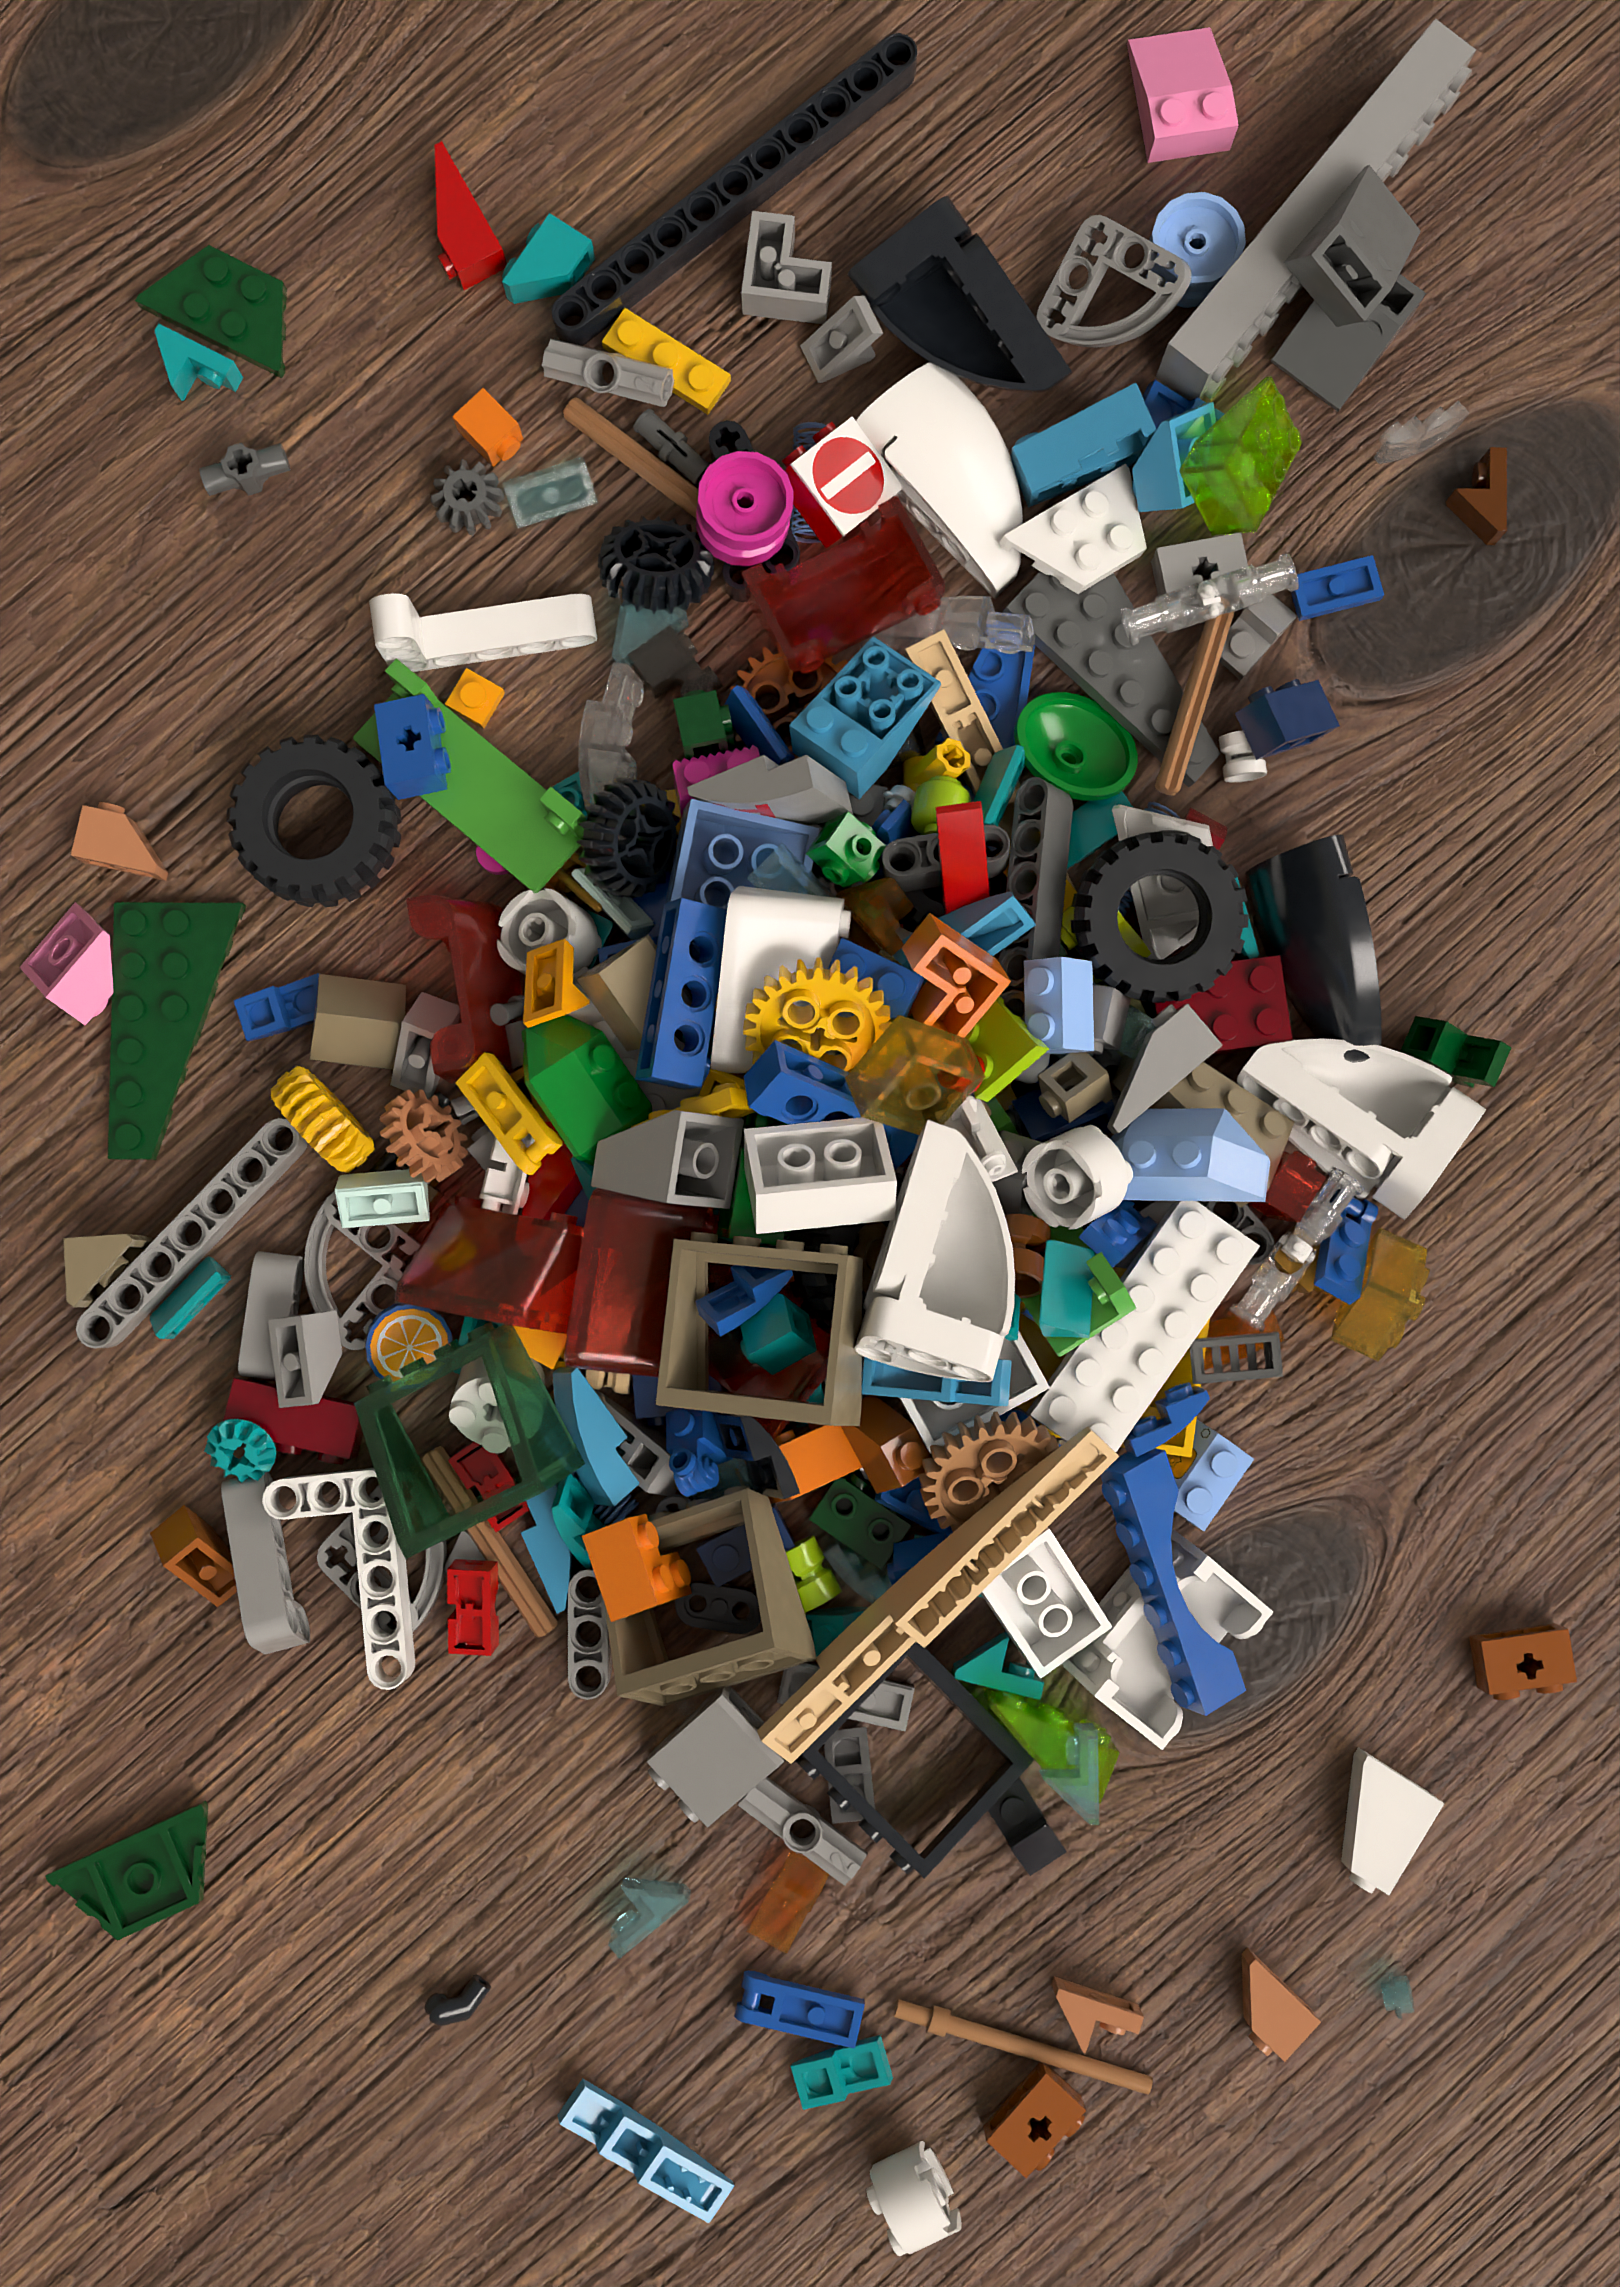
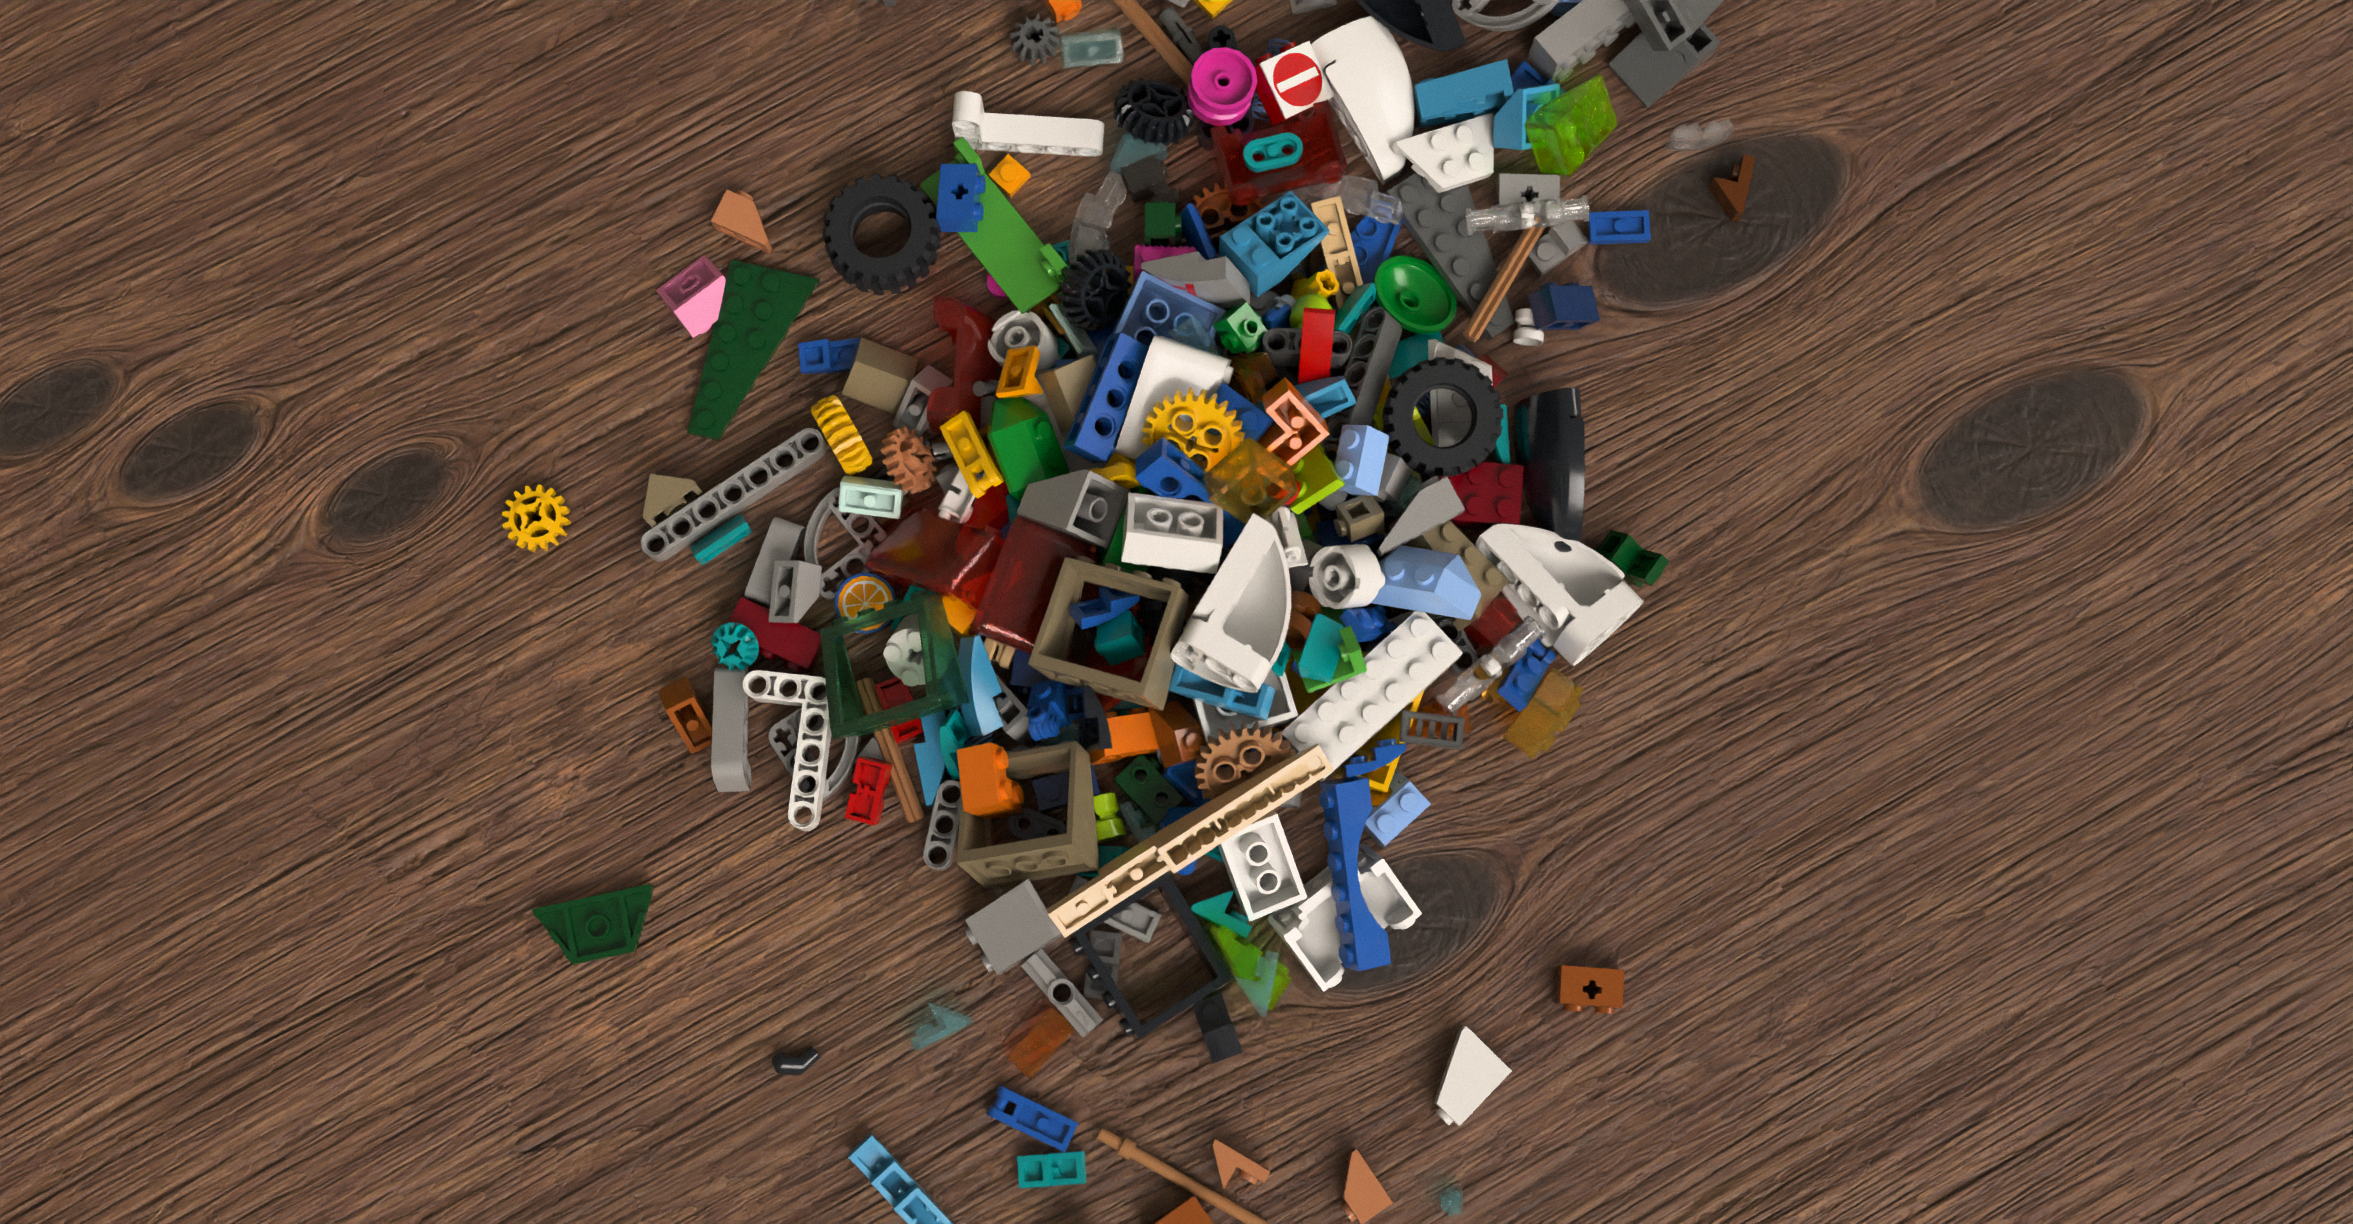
camera: 10 degrees right, 5 degrees down
(833, 586) = (1271, 150): none -> teal plate

